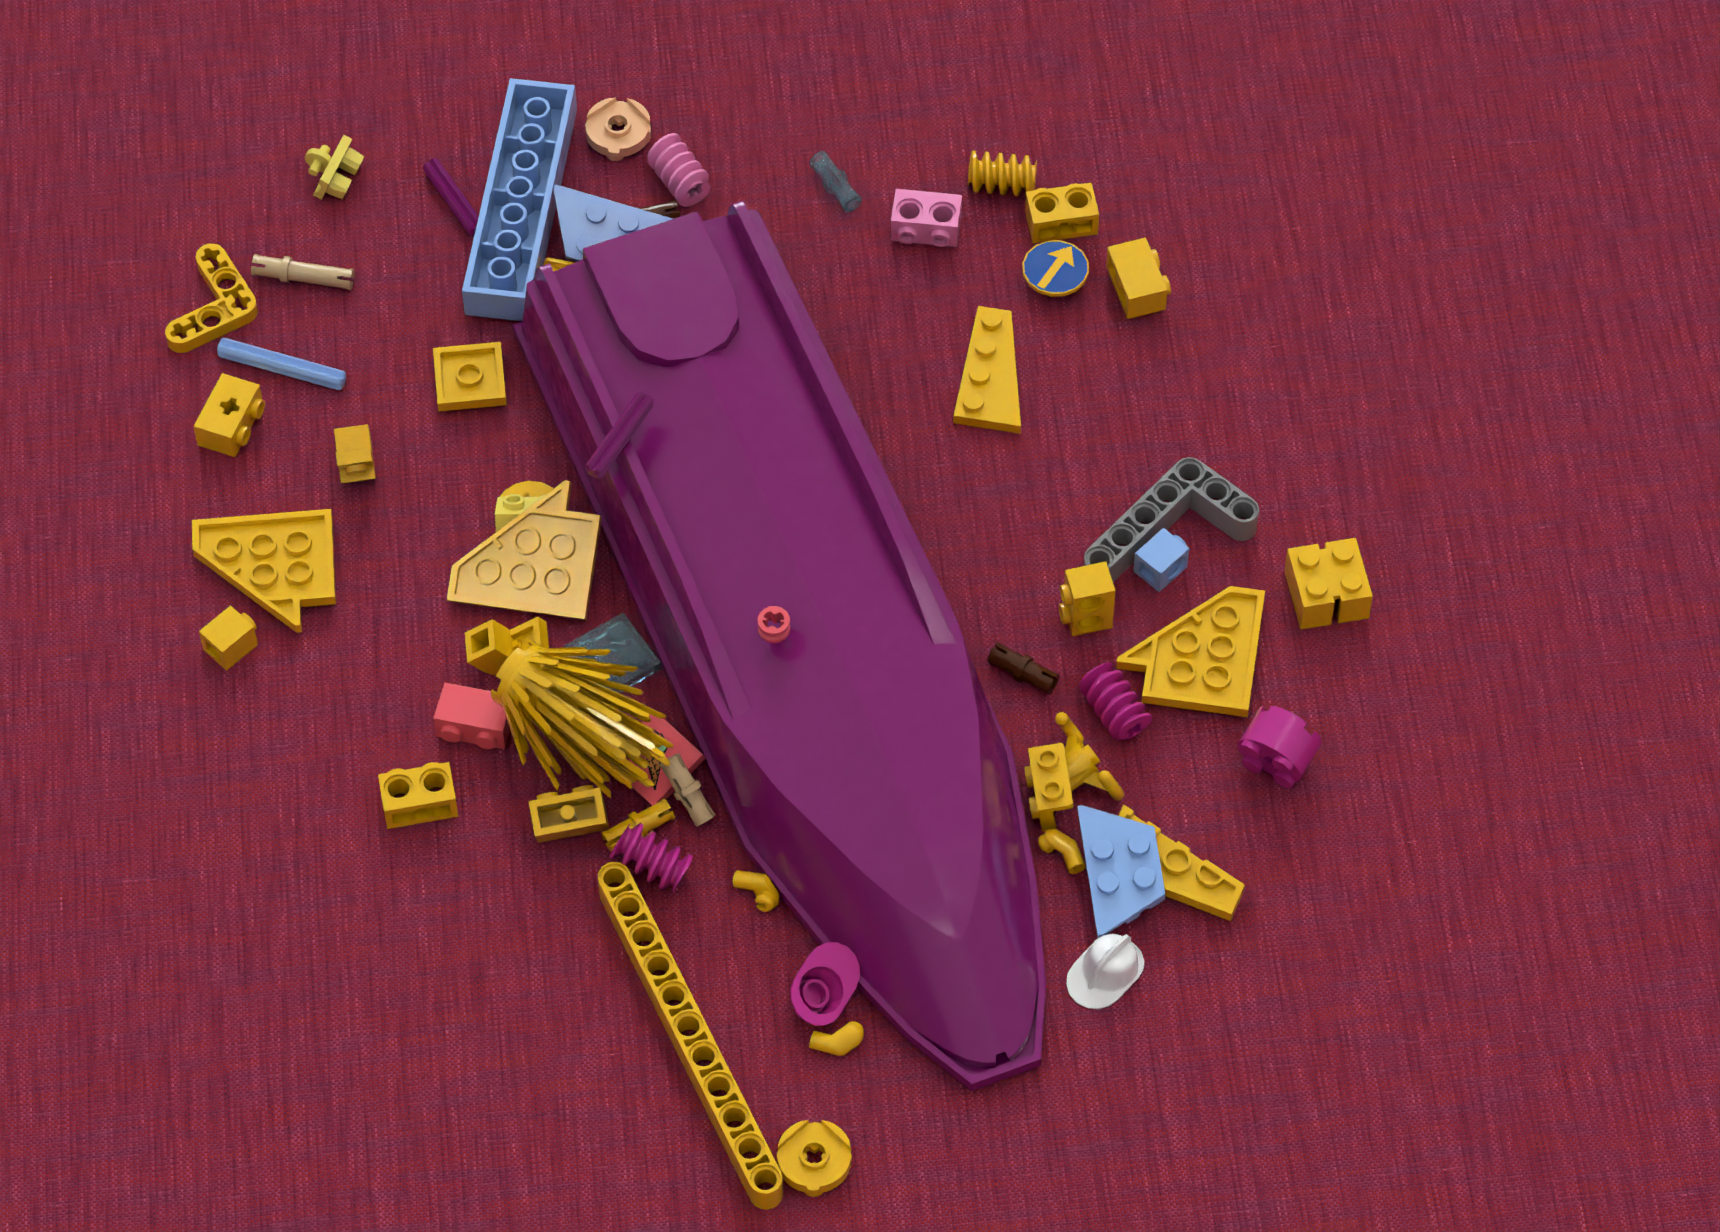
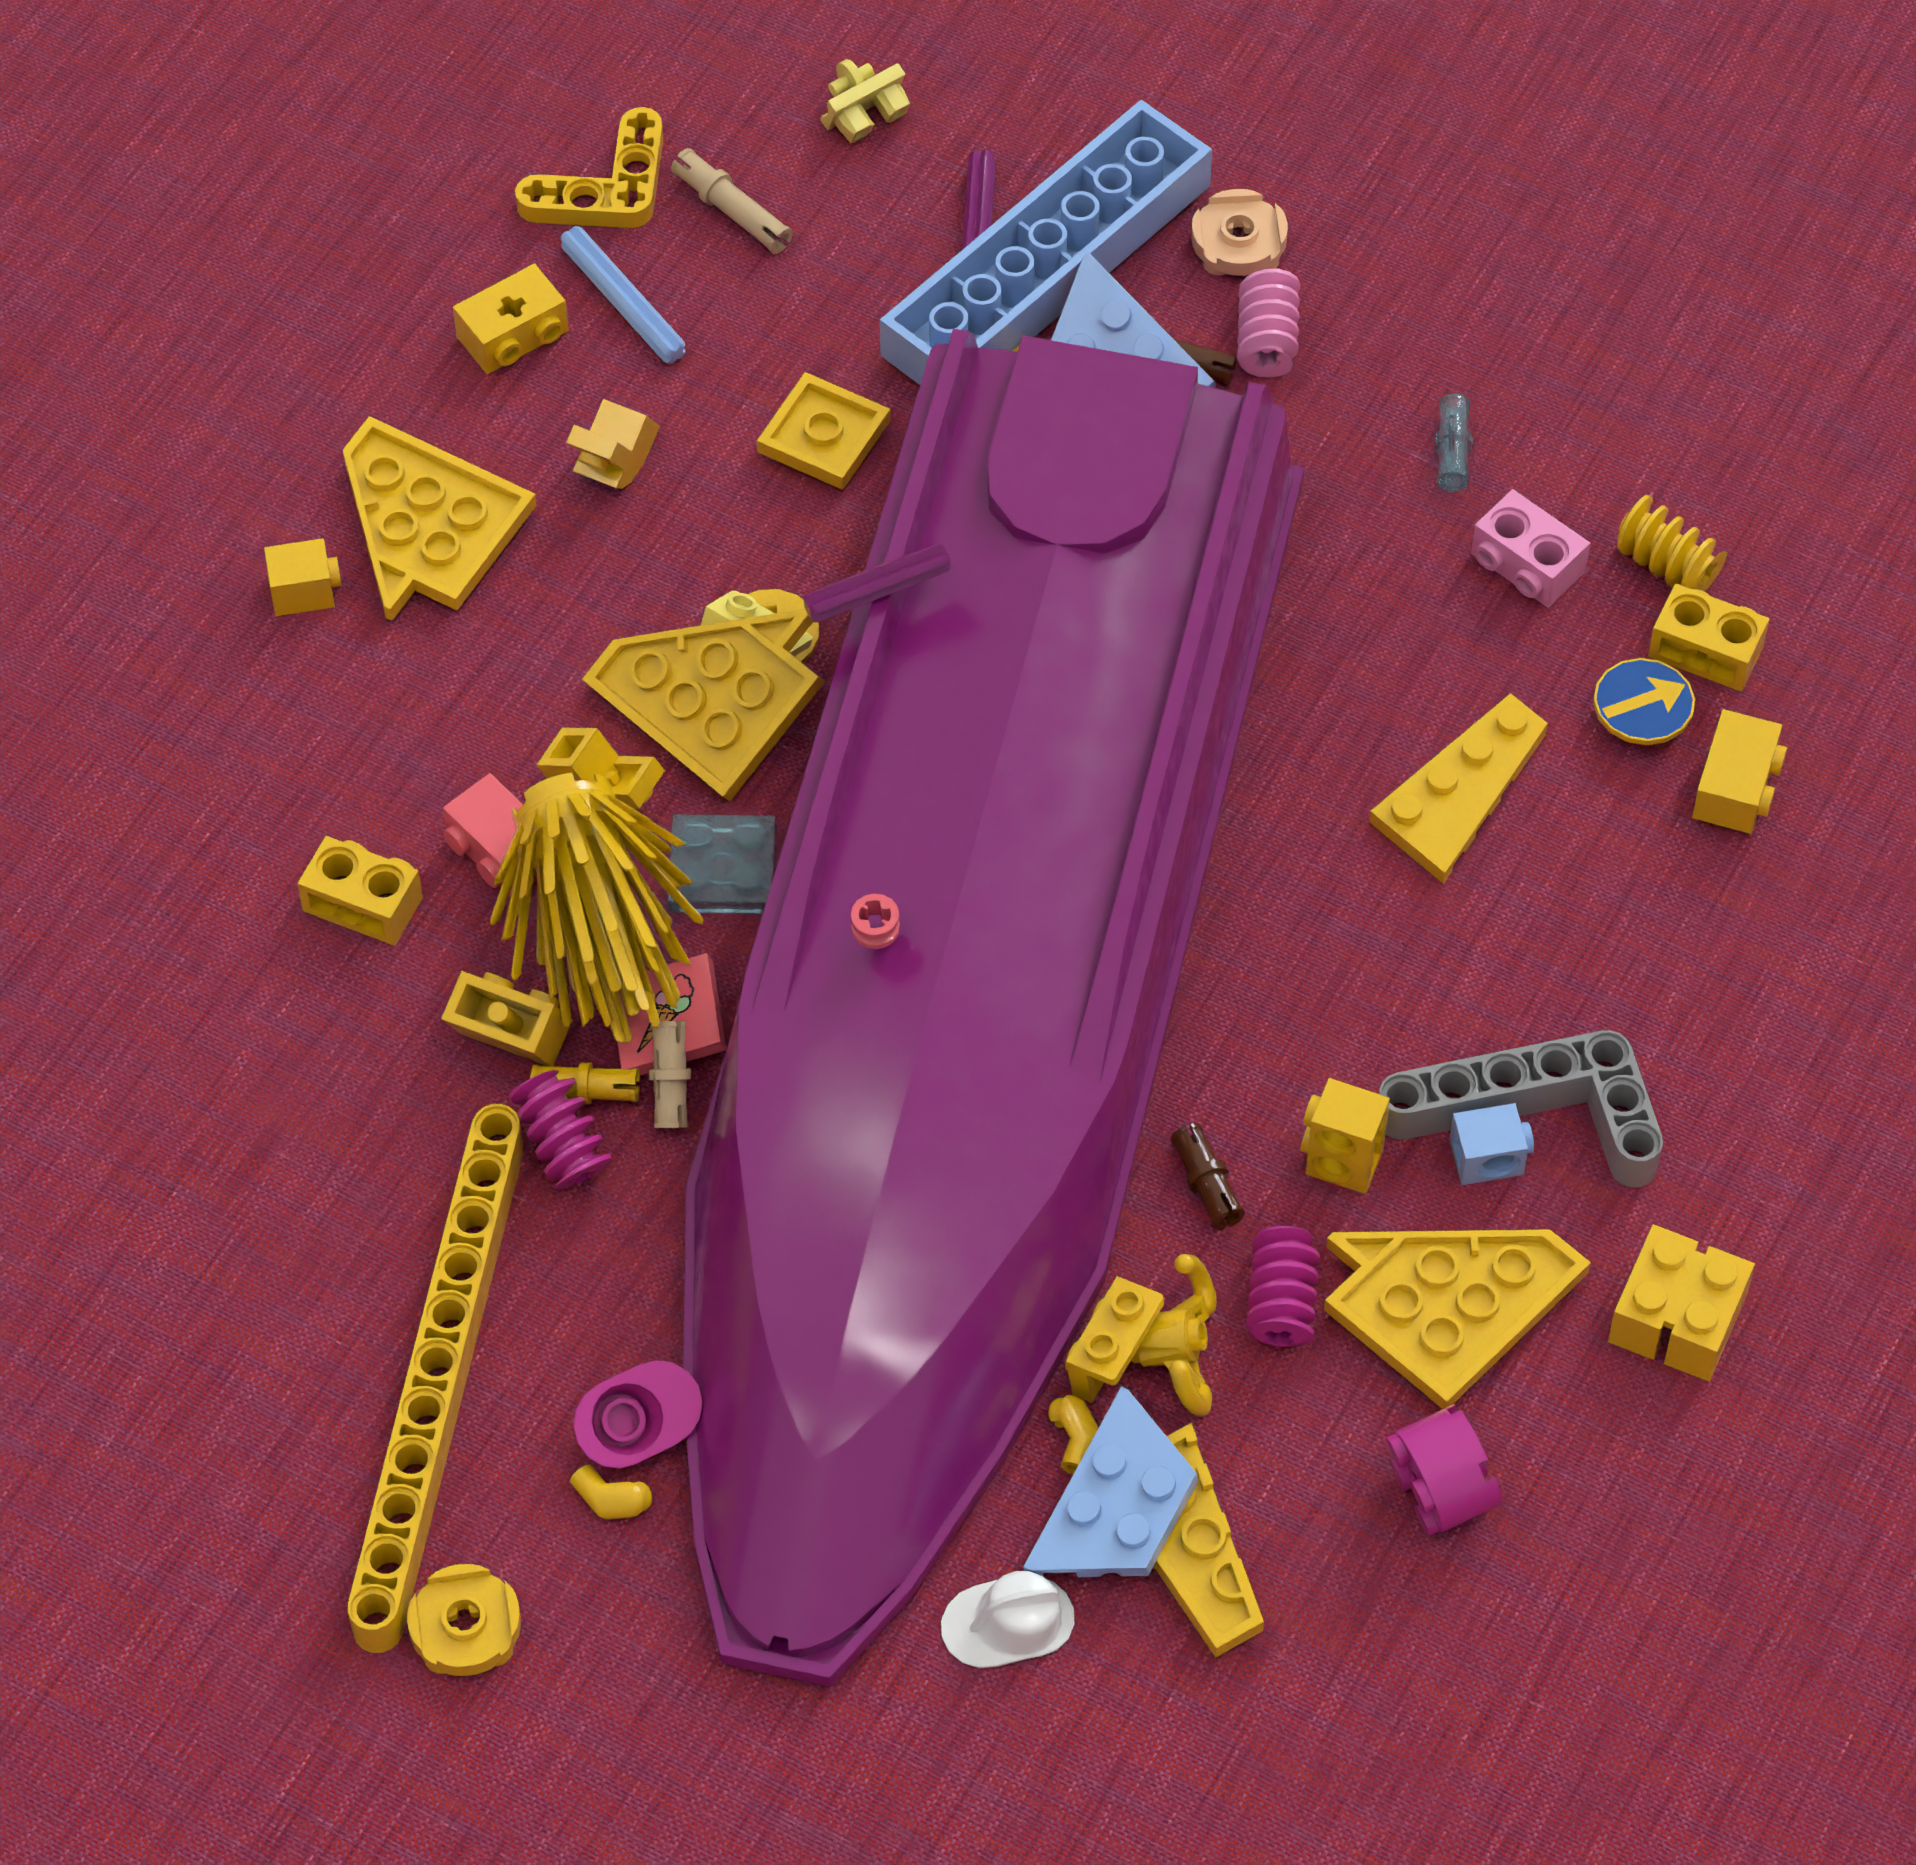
camera: 35 degrees right, 0 degrees up
(765, 891) = (669, 1263): yellow arm -> none

